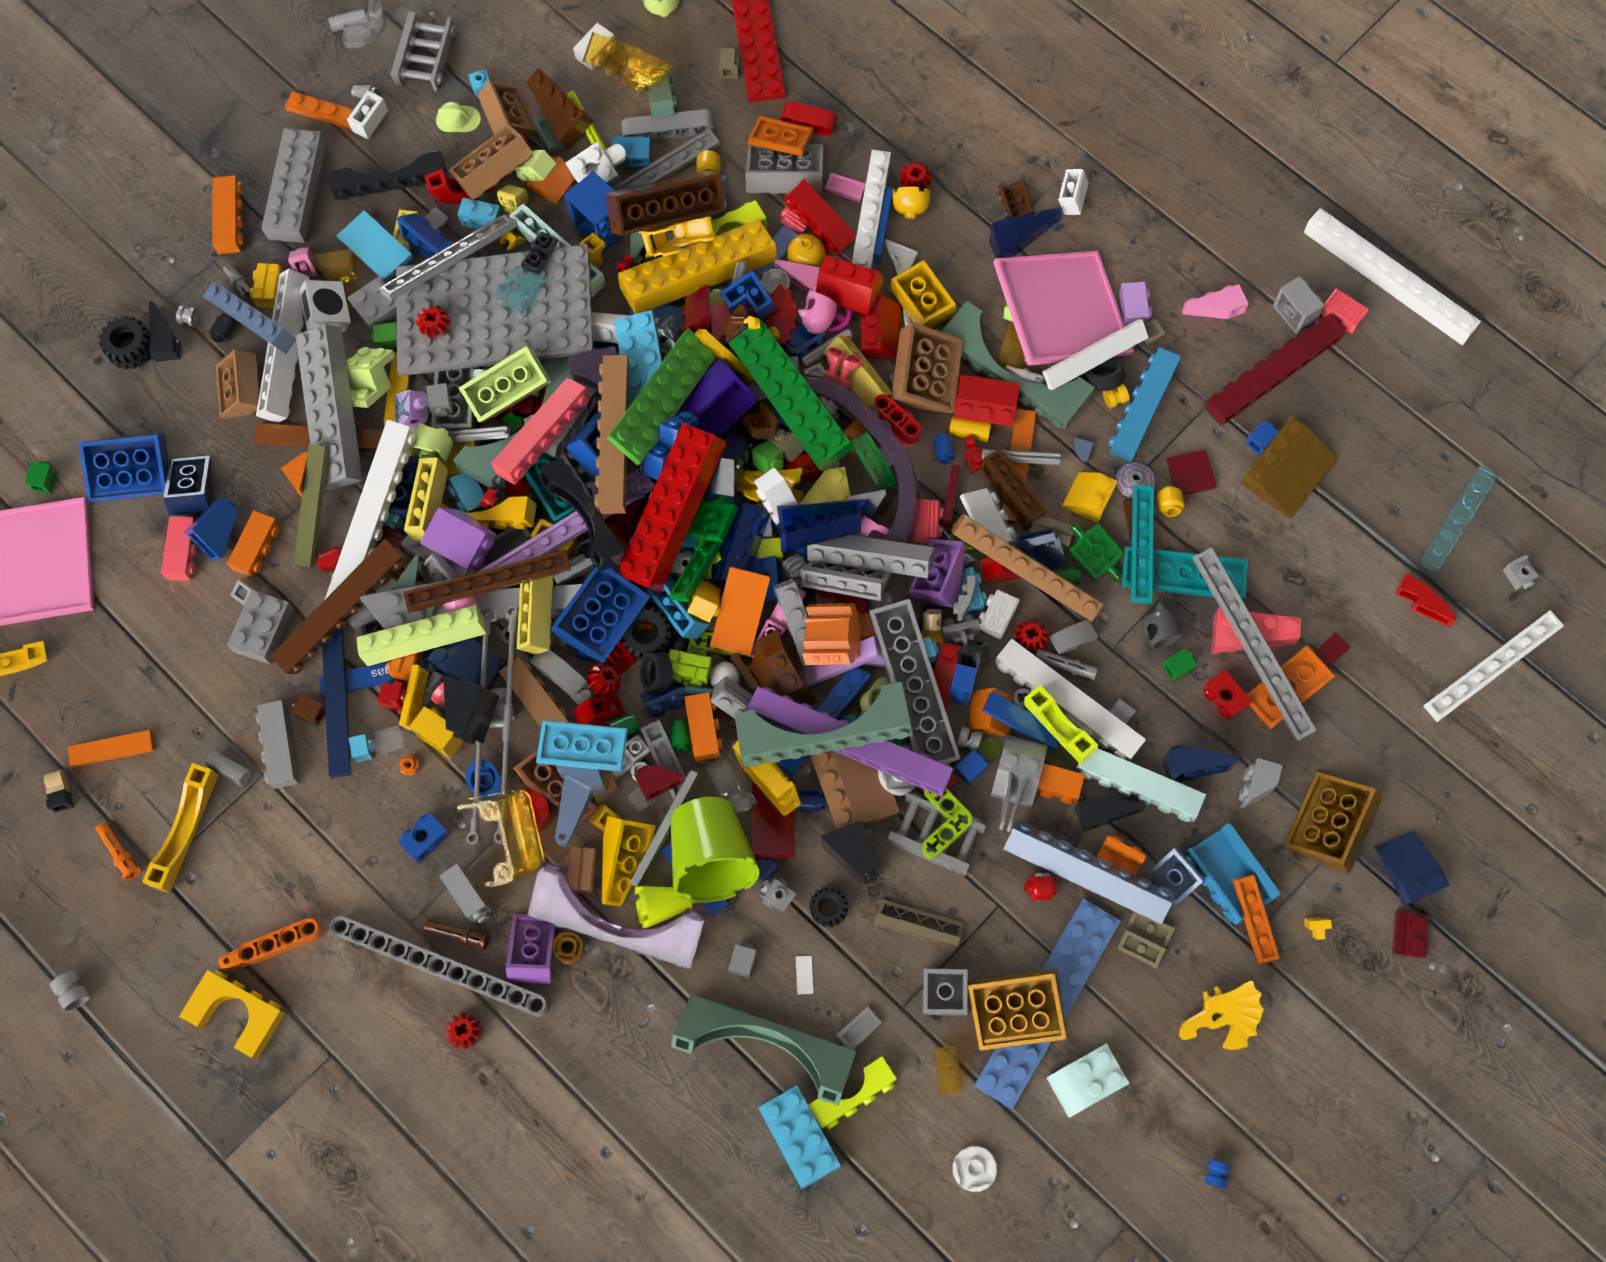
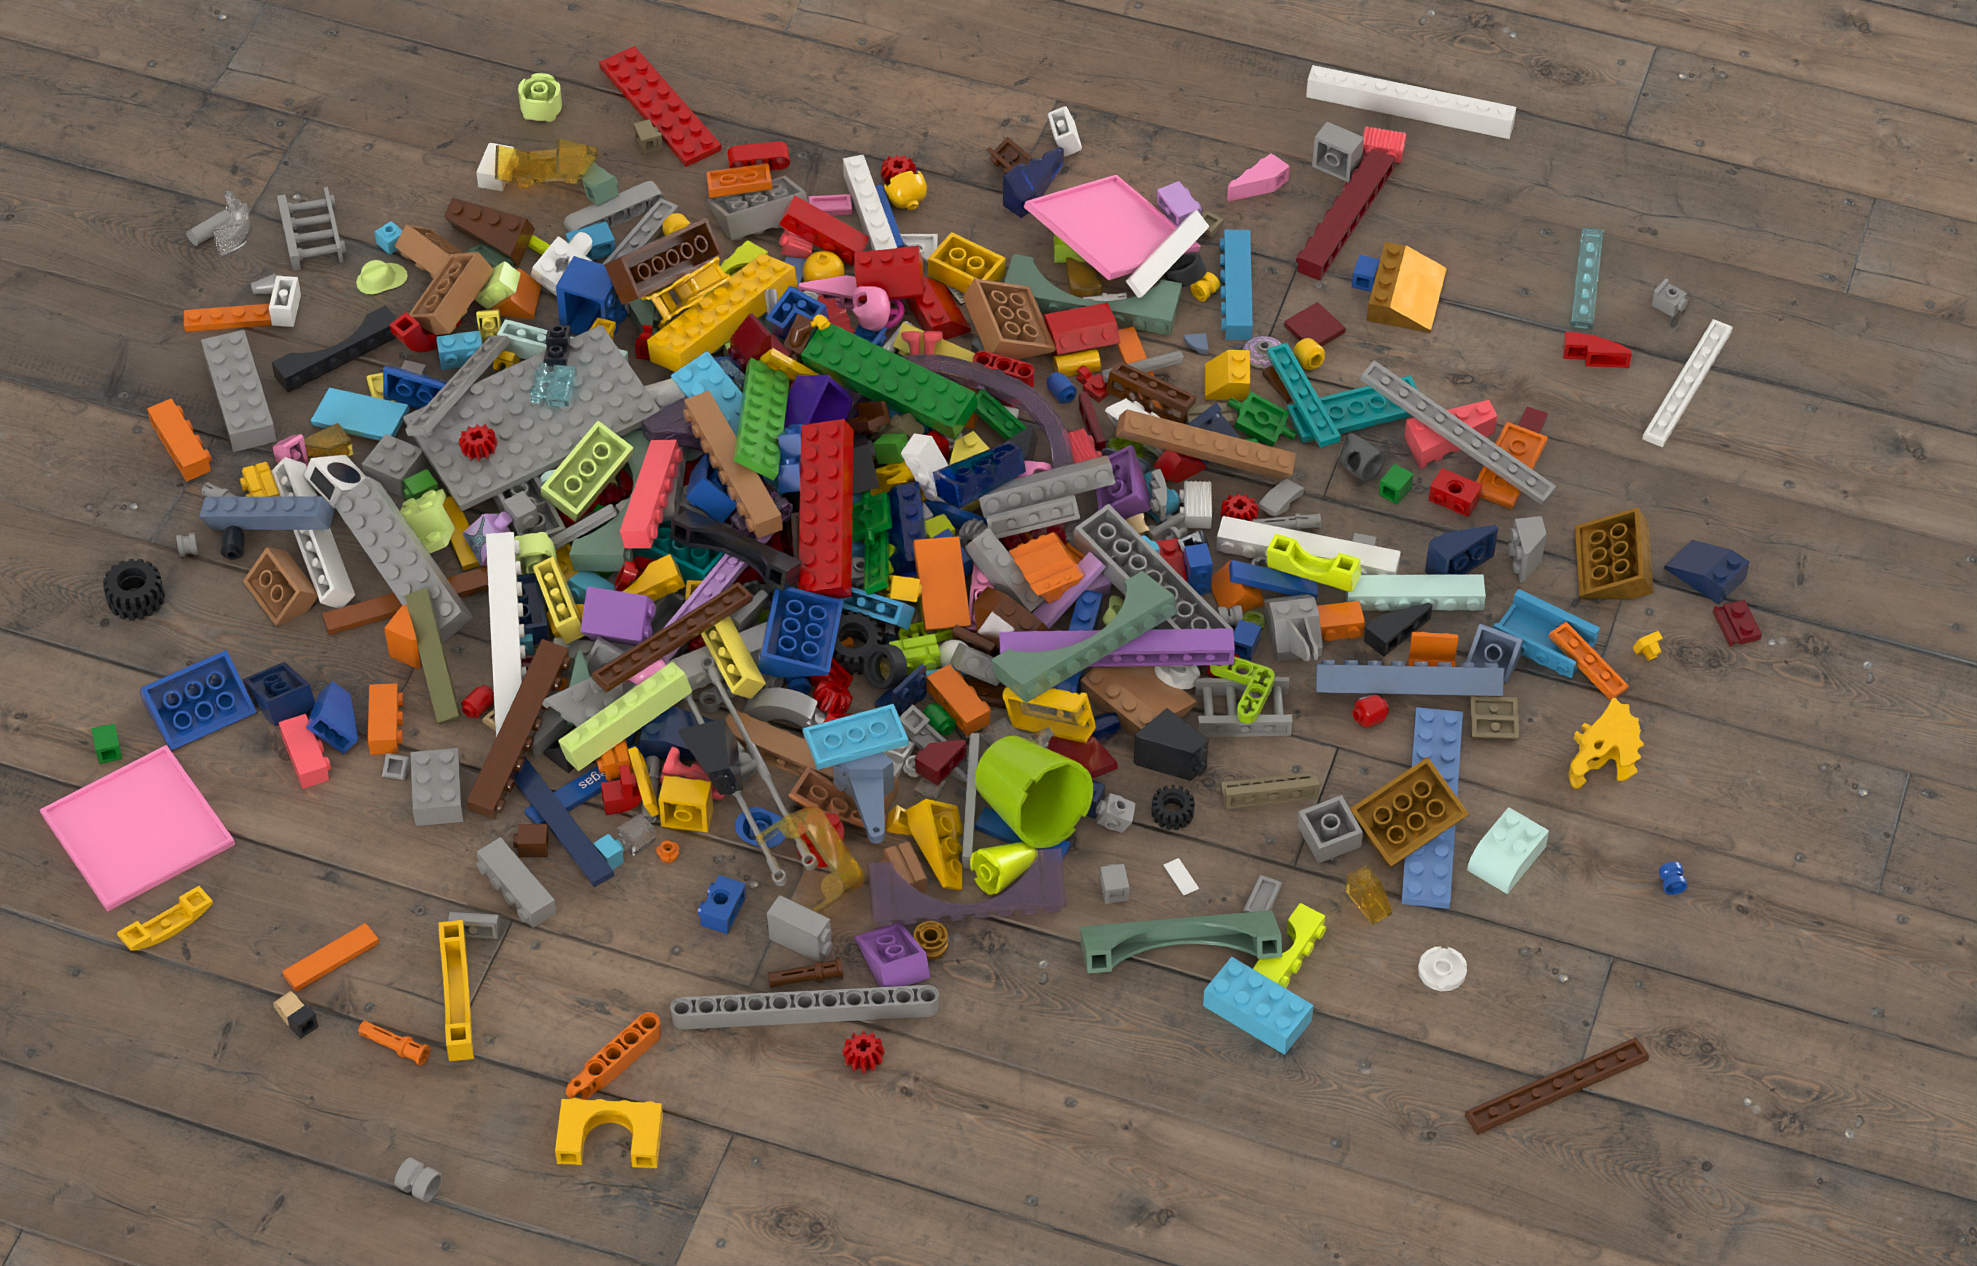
camera: 30 degrees left, 20 degrees down
(163, 342) = (175, 575): black slope -> none

